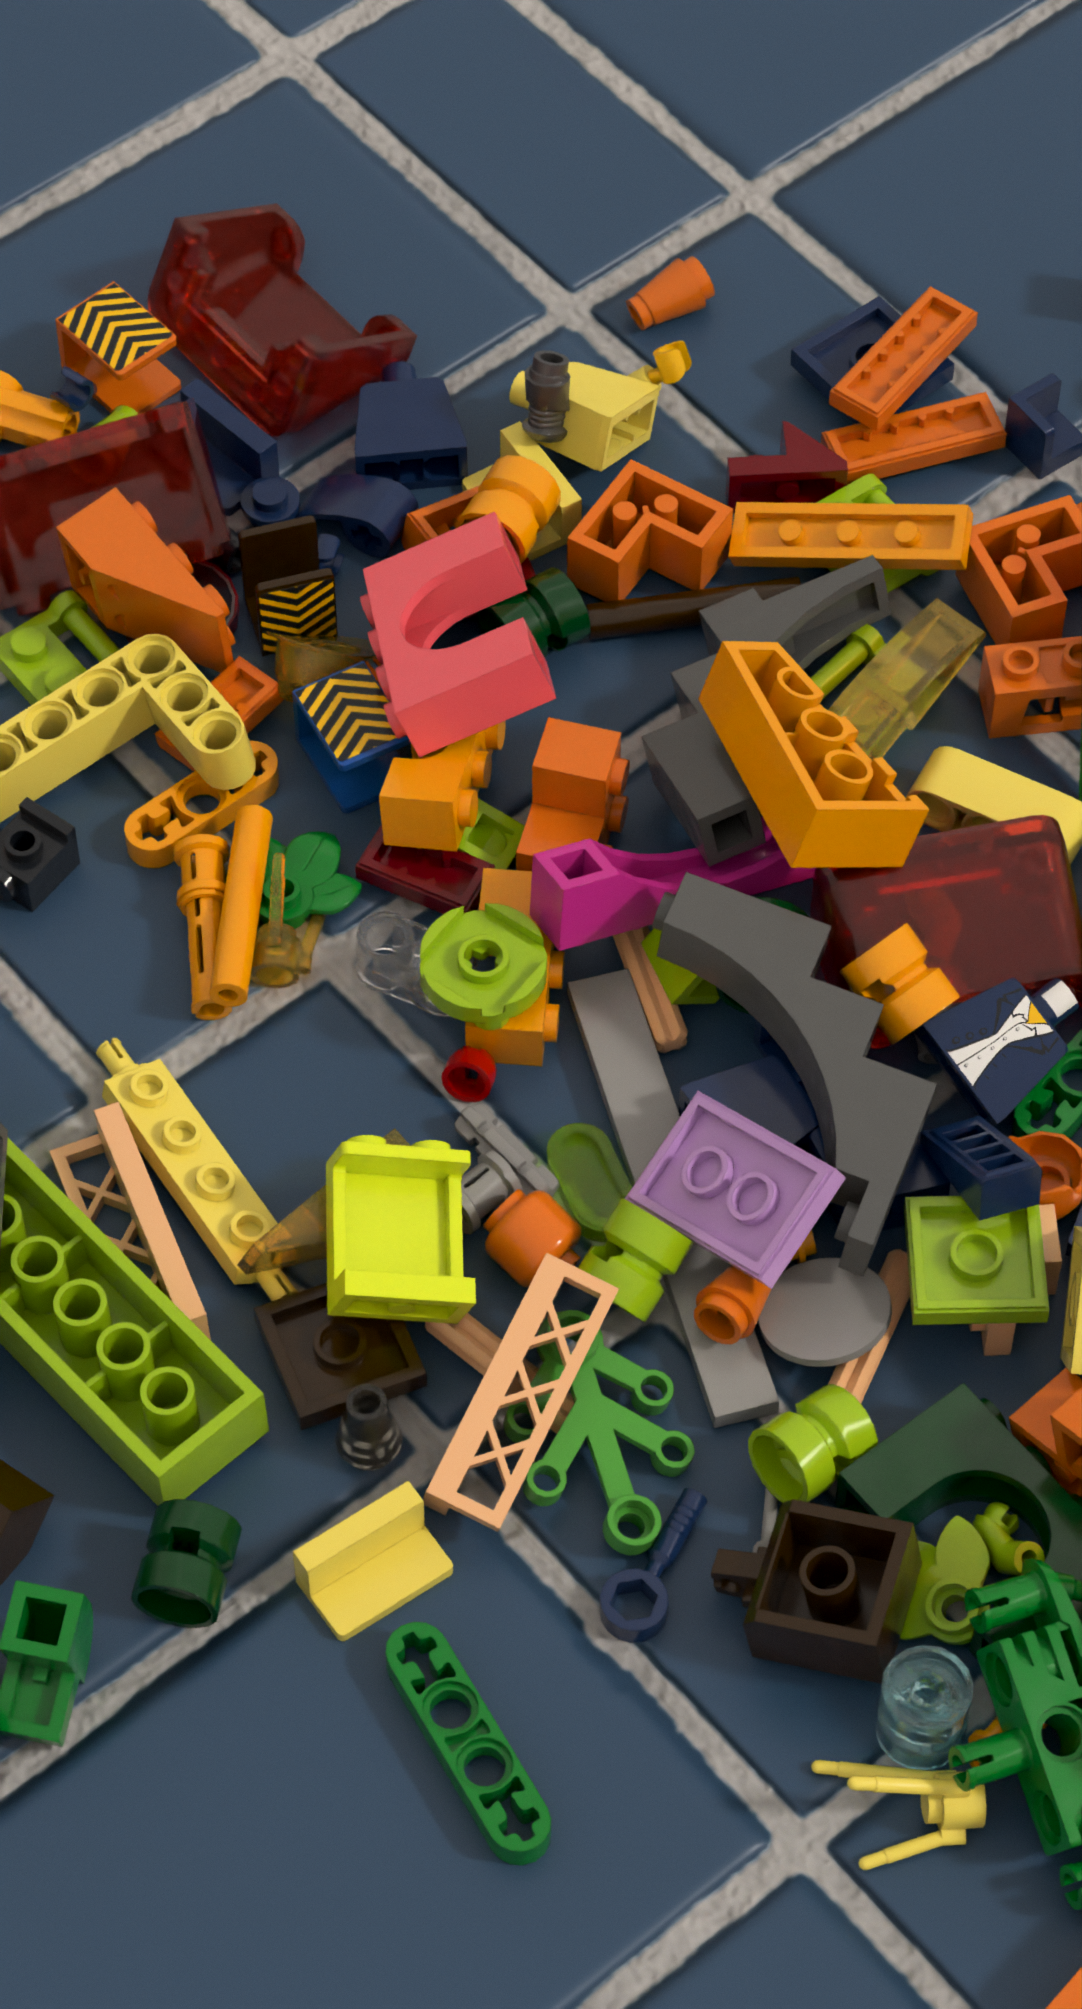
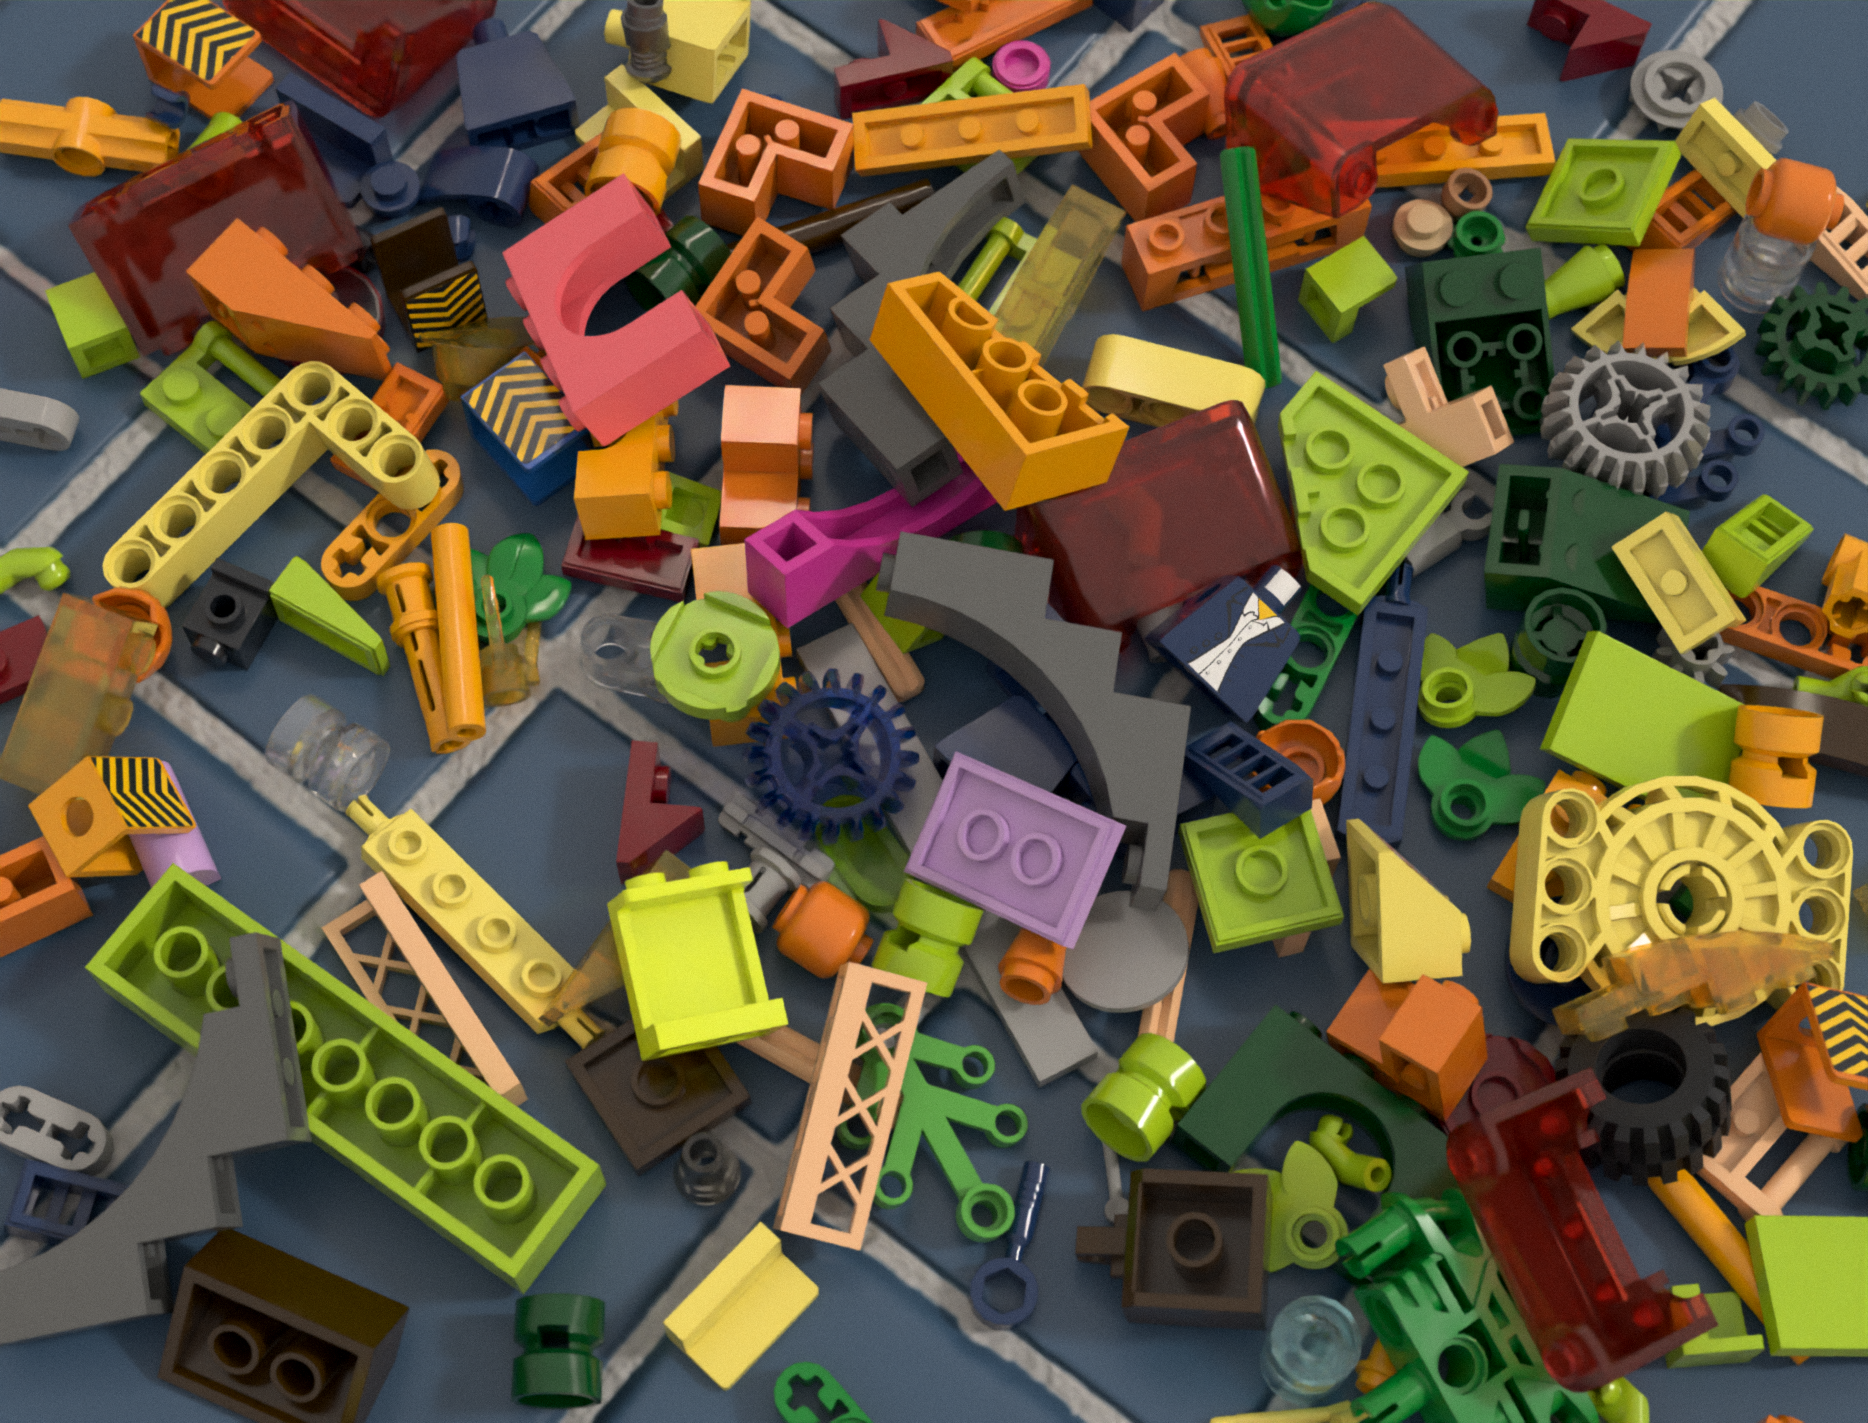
camera: 15 degrees left, 10 degrees up
(89, 990) = (320, 747): none -> clear wheel
(115, 870) = (320, 613): none -> lime slope
(389, 1098) = (648, 820): none -> dark red slope
(457, 1069) = (721, 776): red hinge -> none
(560, 1055) = (855, 773): none -> clear blue gear
(598, 661) = (752, 309): none -> orange brick
(898, 978) = (1127, 601): light orange wheel -> none
(918, 486) = (1021, 66): none -> dark pink tile

